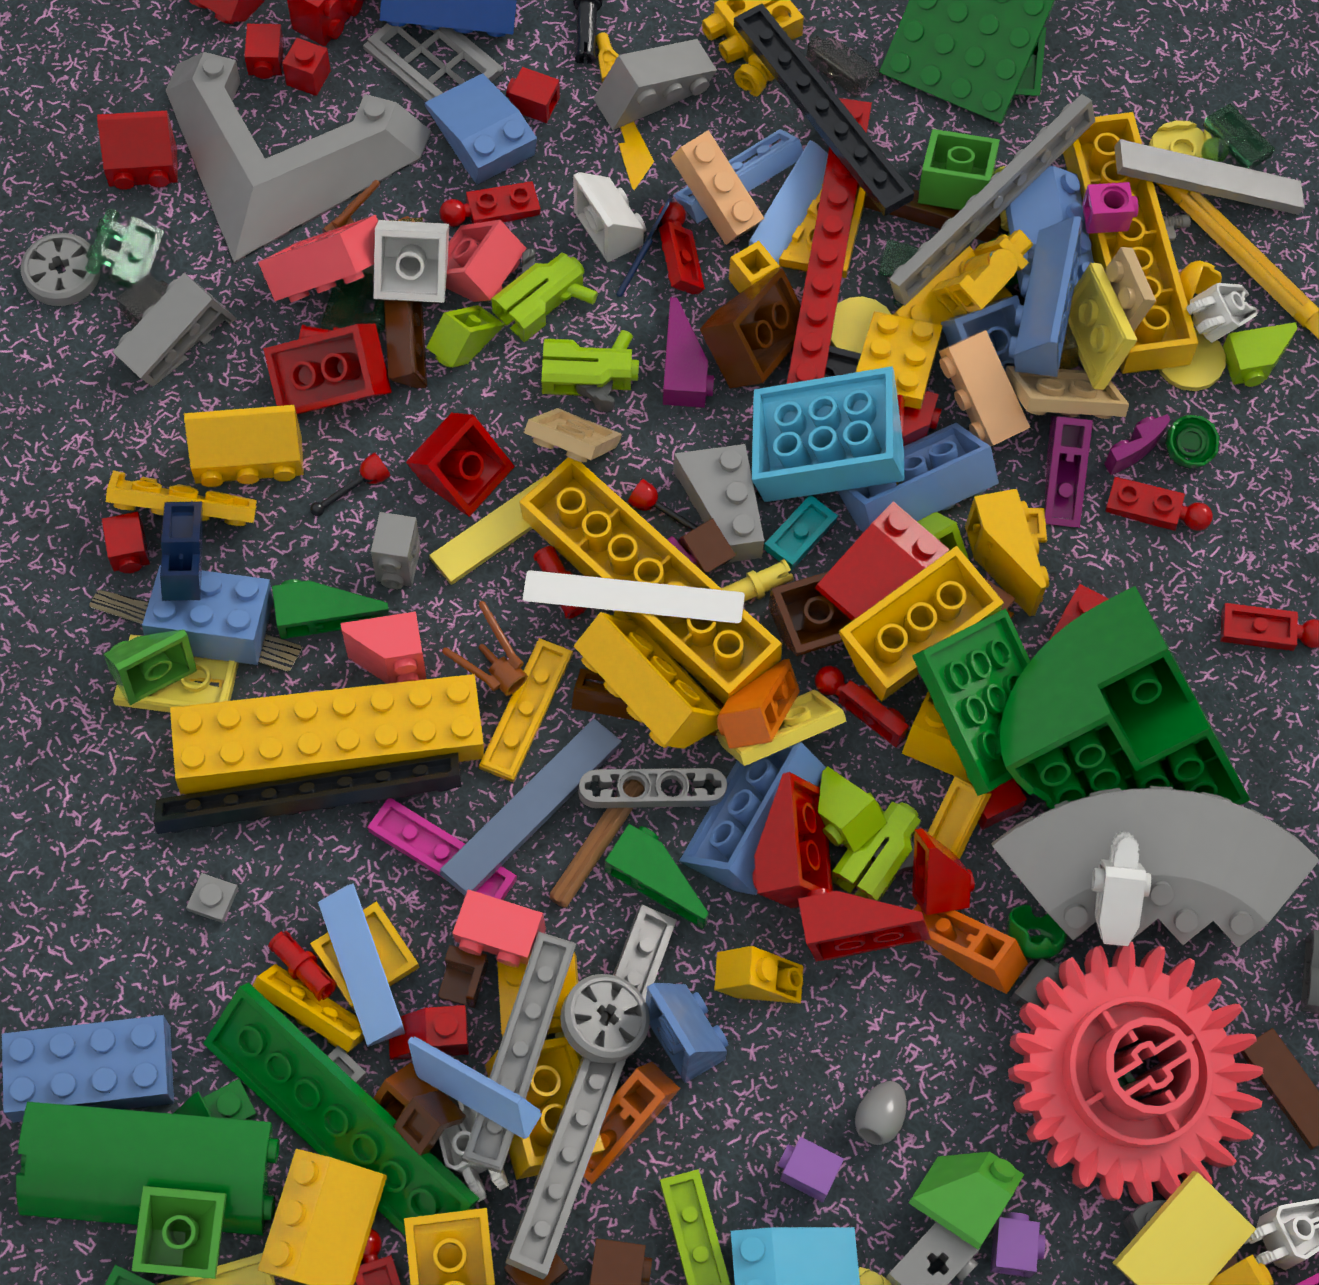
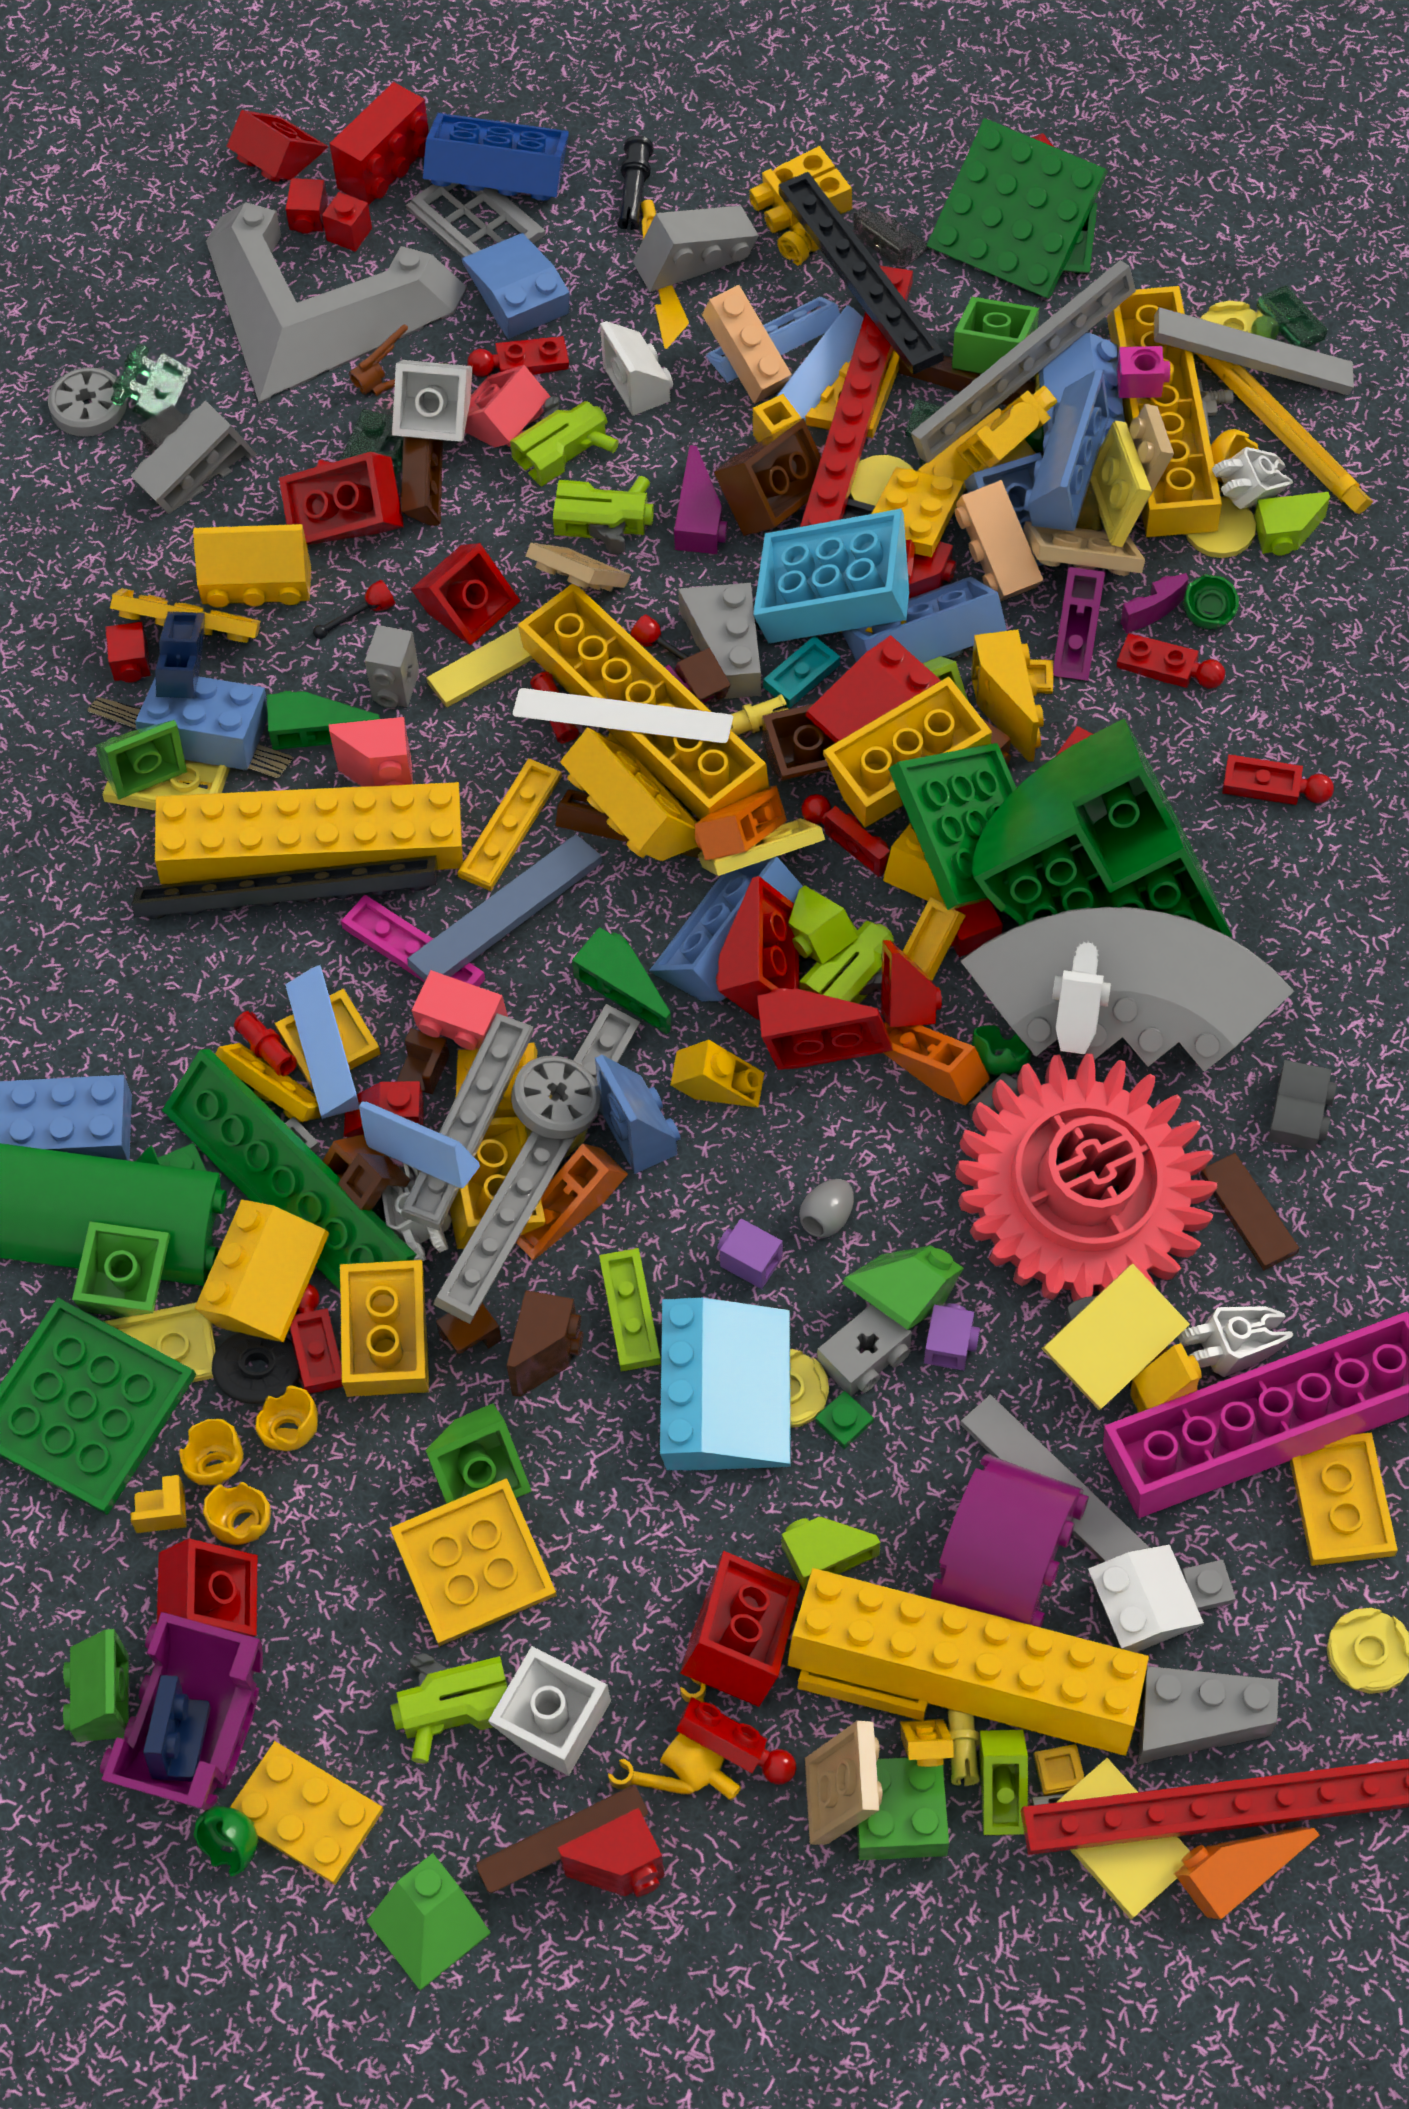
camera: 10 degrees right, 5 degrees down
(138, 149) = (172, 290): red slope -> none
(212, 898) = (183, 980): light grey plate -> none
(321, 261) = (341, 398): coral slope -> none
(463, 335) = (478, 475): lime slope -> none
(505, 673) = (489, 784): dark orange plant -> none
(534, 94) = (573, 254): red brick -> none
(593, 848) = (567, 948): medium nougat axle -> none
(642, 252) = (680, 383): dark blue piece -> none
(653, 794) = (627, 890): light grey beam -> none
(680, 251) = (705, 404): red plate -> none

